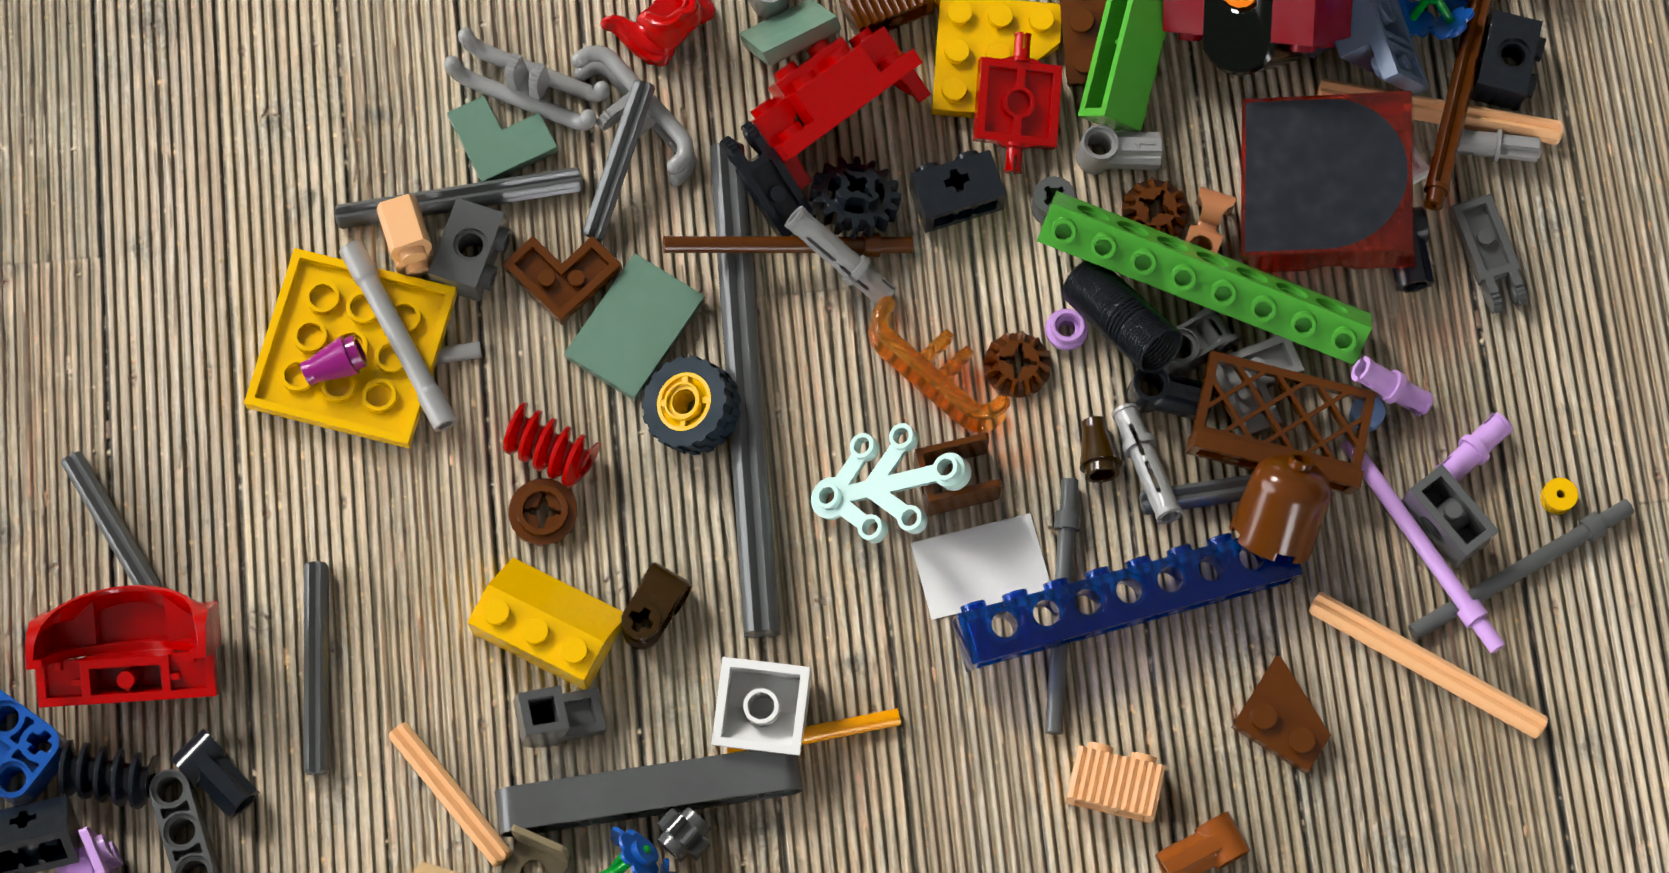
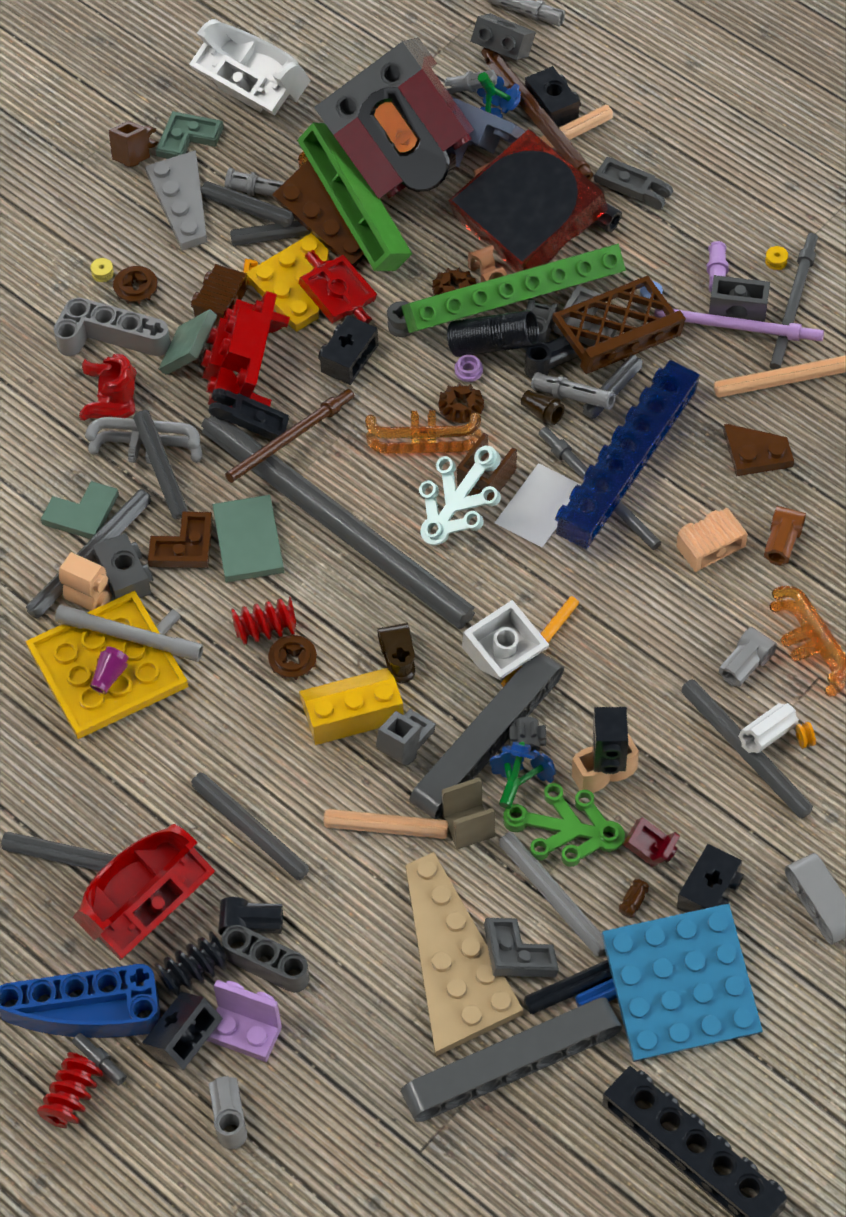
camera: 40 degrees left, 15 degrees down
(526, 83) = (70, 473): light grey piece -> none
(668, 401) = (304, 535): black wheel -> none
(849, 264) = (336, 419): light grey pin -> none
(855, 197) = (301, 390): black gear -> none
(1123, 150) = (405, 274): light grey piece -> none
(1283, 508) = (661, 348): reddish brown cylinder -> none
(1392, 386) = (652, 267): lavender pin -> none
(1499, 145) = (588, 135): light grey axle -> none

